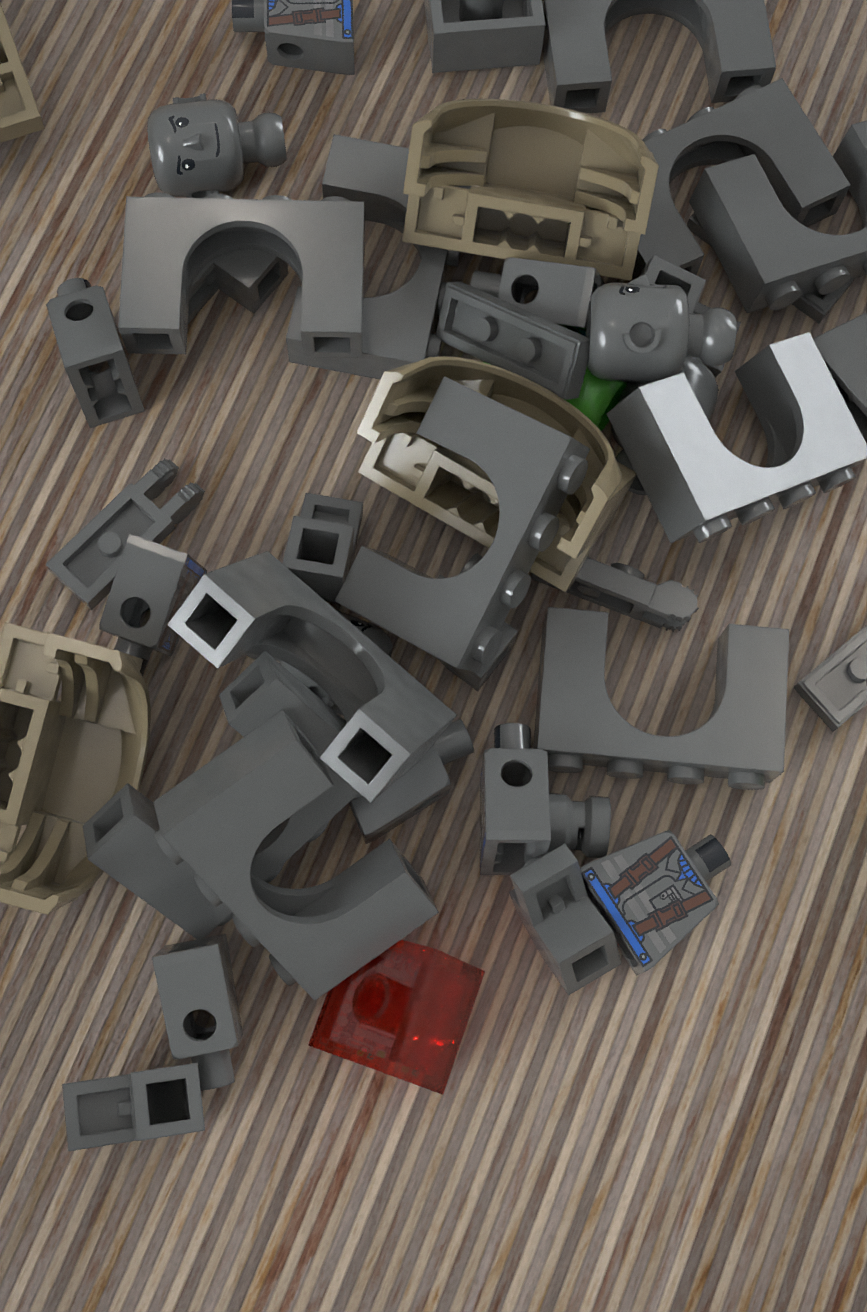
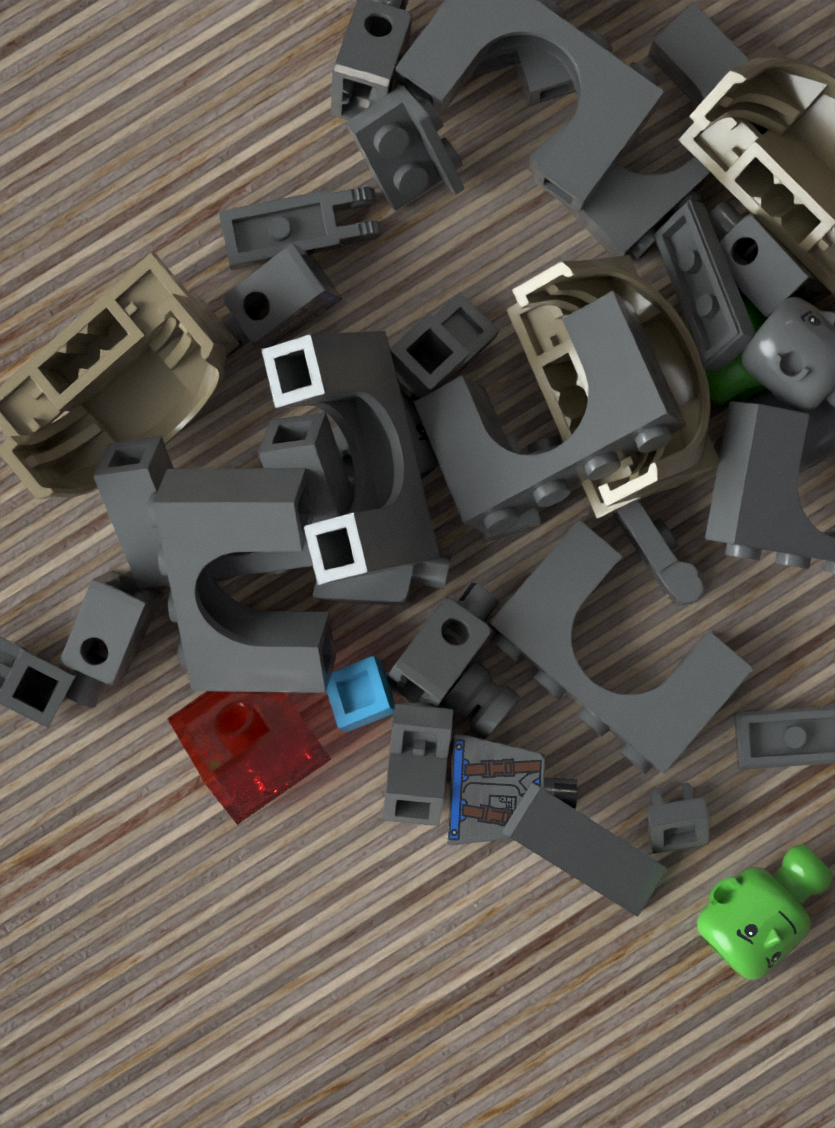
camera: 40 degrees right, 10 degrees up
(174, 400) = (404, 148): none -> dark grey bracket
(469, 894) = (360, 694): none -> dark azure tile
(764, 889) = (584, 849): none -> dark grey tile
(824, 809) = (677, 823): none -> dark grey tile

